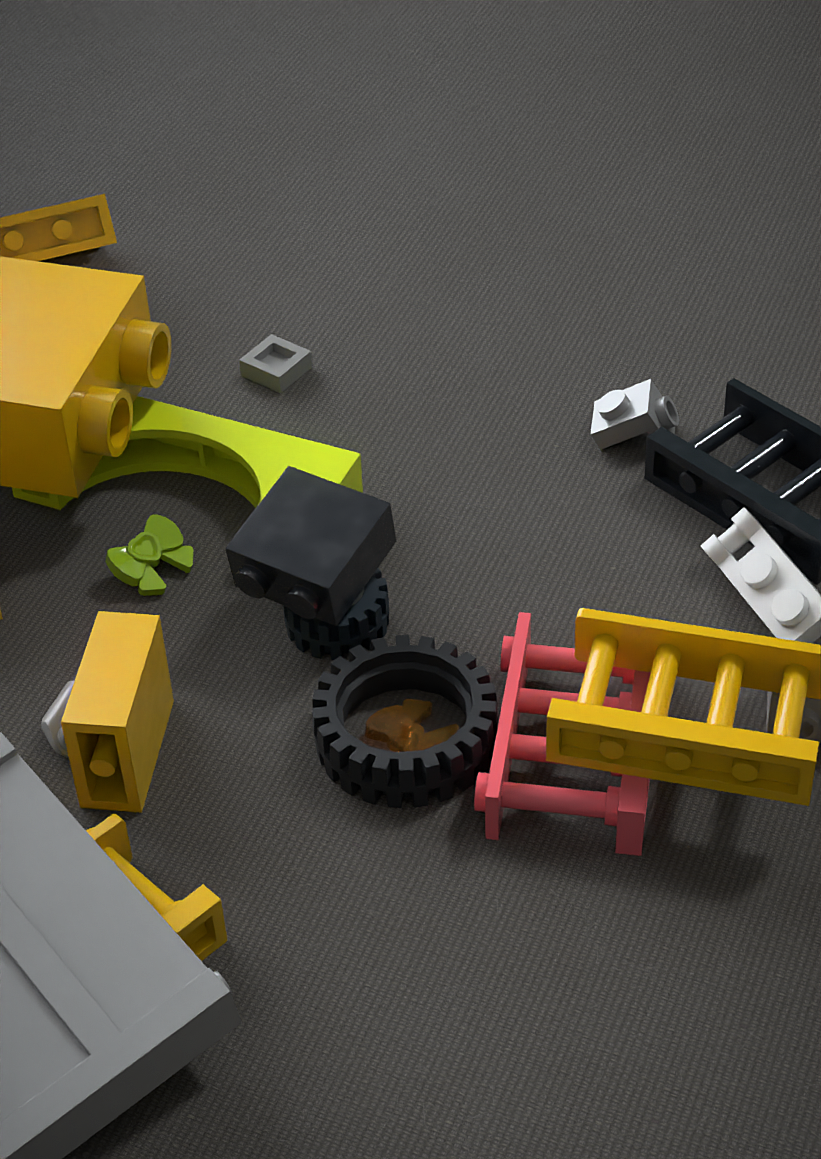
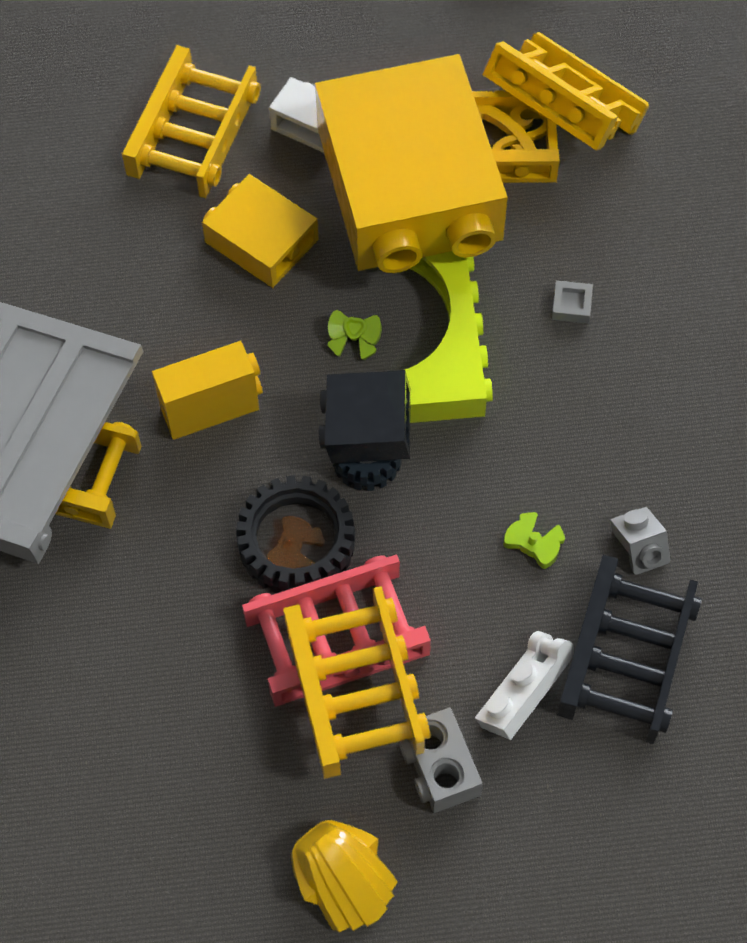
camera: 60 degrees right, 20 degrees up
(580, 508) = (543, 549): none -> lime piece

